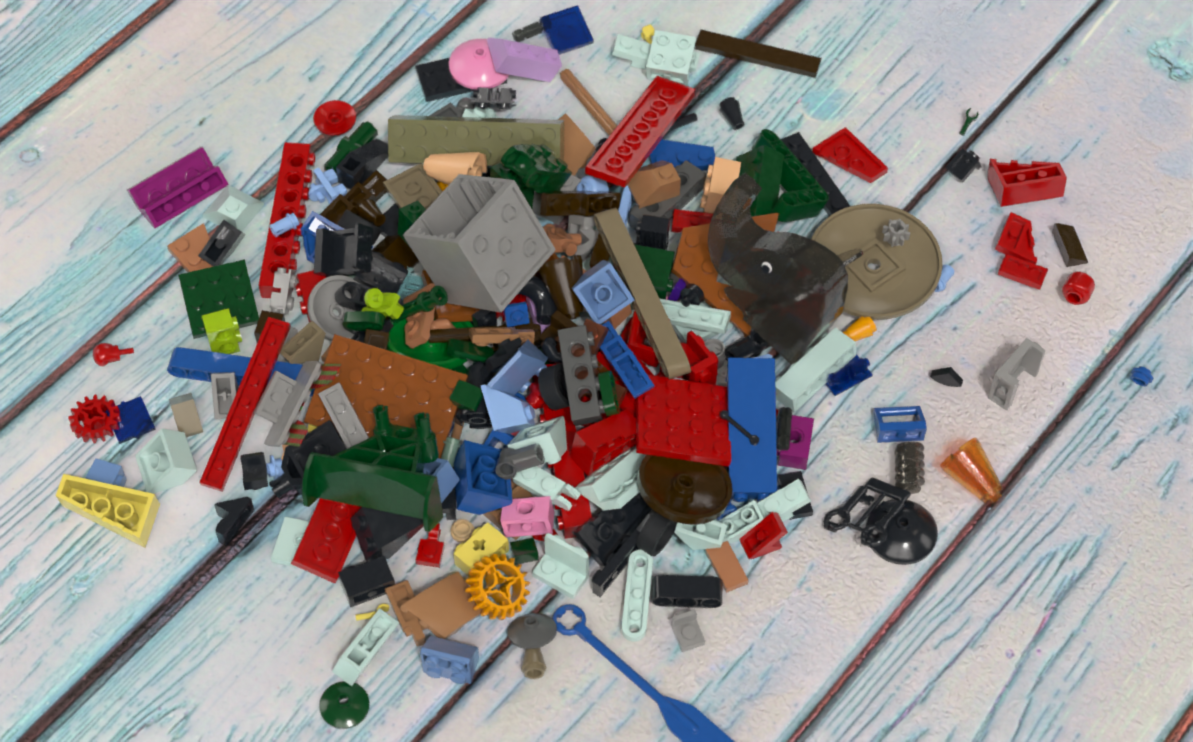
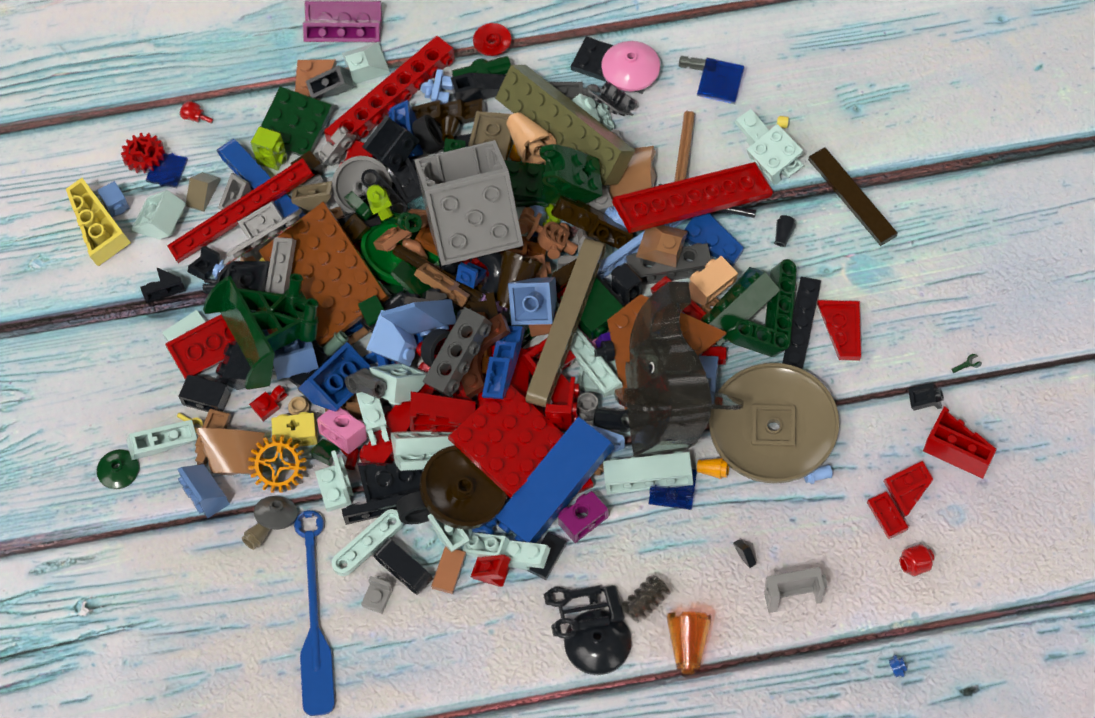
camera: 45 degrees right, 5 degrees up
(284, 224) = (377, 97): light blue pin -> none
(524, 59) = (662, 82): lavender slope -> none
(609, 393) = (465, 380): dark green beam -> none
(754, 440) = (543, 491): black hinge -> none
(784, 428) = (576, 500): pearl dark grey axle -> none
(896, 232) = (804, 417): light grey gear -> none
(899, 430) = (669, 568): blue tile -> none
(1069, 245) = (949, 521): dark brown slope -> none

